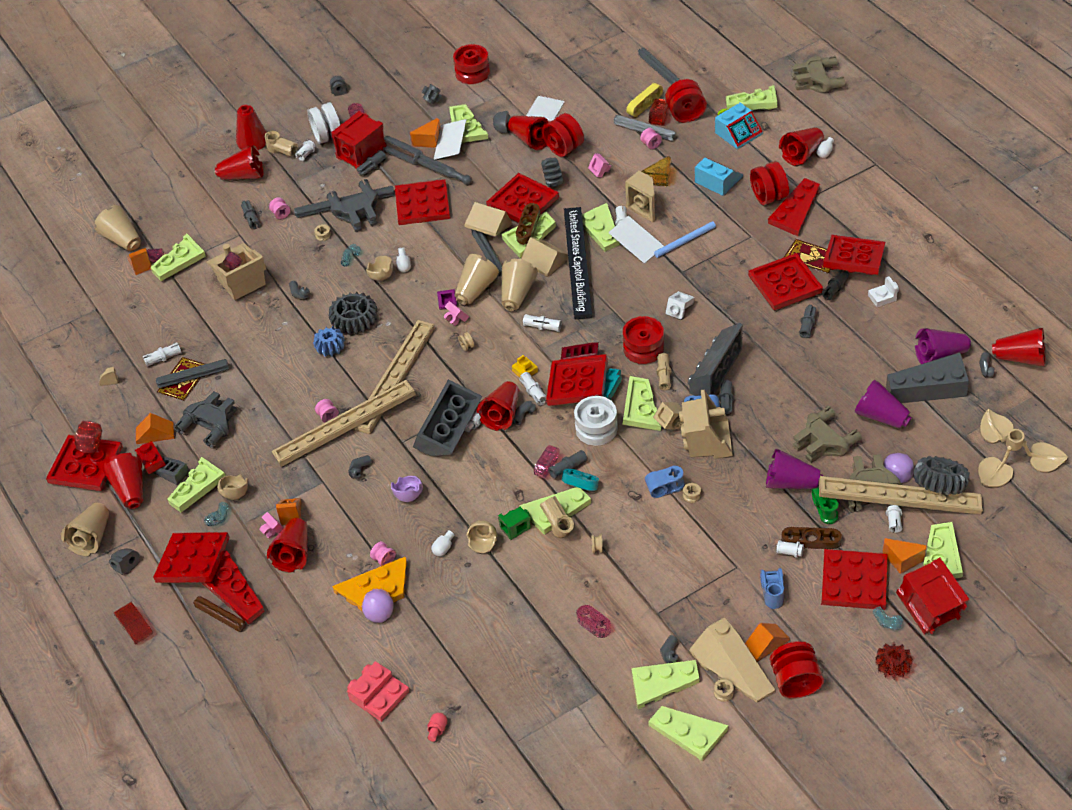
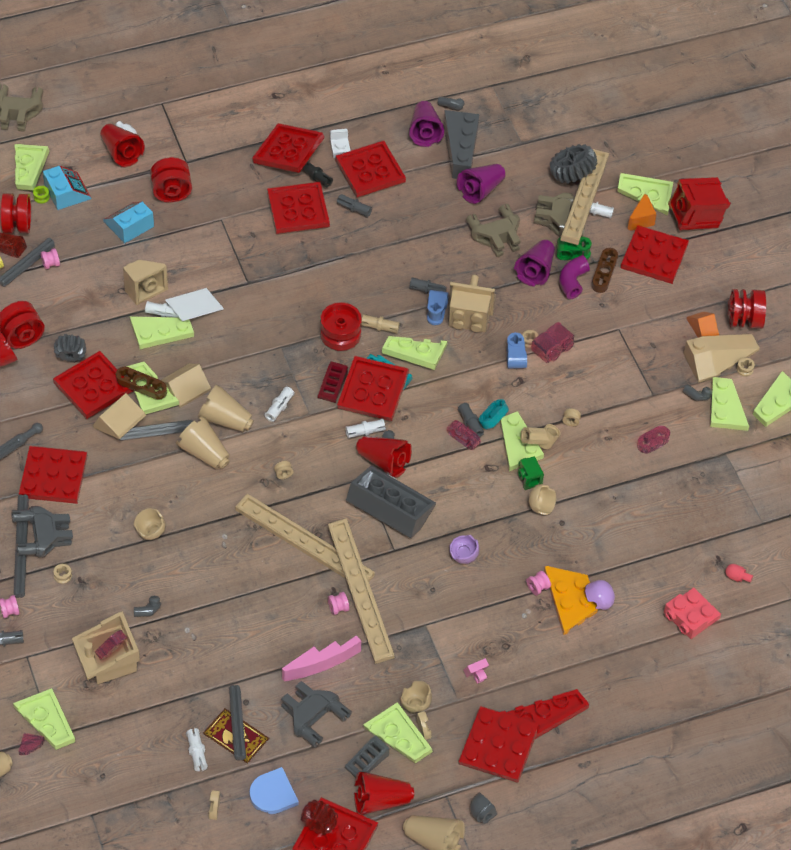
camera: 85 degrees left, 5 degrees up
(126, 413) = (273, 792): none -> light blue tile
(133, 623) = (563, 806): clear red slope -> none
(139, 261) = (32, 758): orange slope -> none
(150, 457) = (346, 772): red plate -> none
(154, 429) = (308, 769): orange slope -> none
(206, 499) = (422, 725): none -> tan tile
(218, 516) = (447, 718): clear light blue arm -> none
(219, 613) = (570, 731): reddish brown axle -> none
(263, 411) = (315, 661): none -> bright pink slope
(288, 509) = (457, 652): orange slope -> none
(290, 546) = (509, 653): red cone -> none
(329, 341) = (239, 587): medium blue gear -> none
(346, 255) = (108, 554): clear light blue arm -> none
(353, 313) = (203, 566): dark grey gear -> none
(356, 465) = (417, 588): dark grey arm -> none
(403, 261) = (142, 502): white cylinder -> none
(442, 544) = (537, 535): white cylinder -> none
(446, 296) = (212, 477): magenta slope -> none
(456, 313) = (241, 470): bright pink tile -> none
(524, 365) = (334, 431): yellow tile -> none
(577, 263) = (207, 357): black tile -> none
(596, 420) = (429, 385): white wheel -> none
(599, 165) = (72, 310): bright pink tile -> none
(660, 172) = (107, 262): clear yellow slope -> none
(668, 415) = (443, 328): tan brick -> none
(678, 303) = (298, 290): white bracket -> none
(684, 239) = (206, 268): light blue bar -> none
(689, 509) = (553, 342): none -> clear pink brick
(717, 361) = (389, 277): dark grey slope -> none
(772, 588) = (653, 307): medium blue piece -> none
(787, 506) = (569, 275): none -> magenta cylinder
(788, 548) = (616, 282): white pin -> none
(793, 210) = (204, 179): red wing -> none
(811, 254) = (266, 178): sticker -> none
(861, 321) = (370, 168): none -> red plate
(887, 622) = (704, 244): clear light blue arm -> none
(894, 660) = (745, 250): clear red gear -> none
(900, 465) = (546, 188): lavender hair -> none
(997, 428) = (560, 100): tan plant -> none
(1022, 347) = (448, 68): red cone -> none

